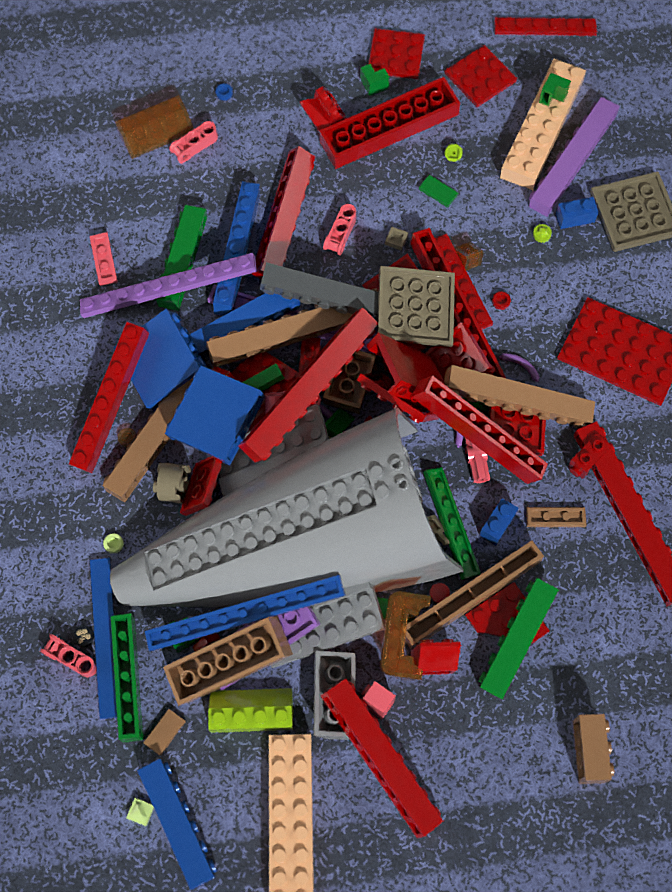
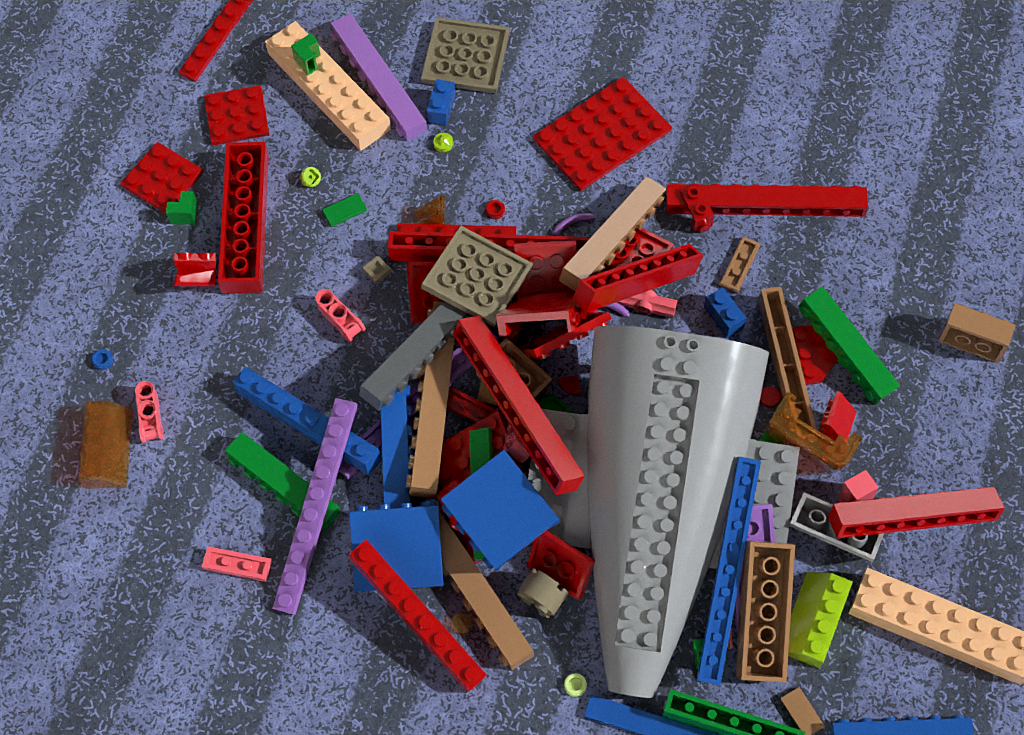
camera: 65 degrees left, 5 degrees down
(285, 209) = (286, 356): brick -> none

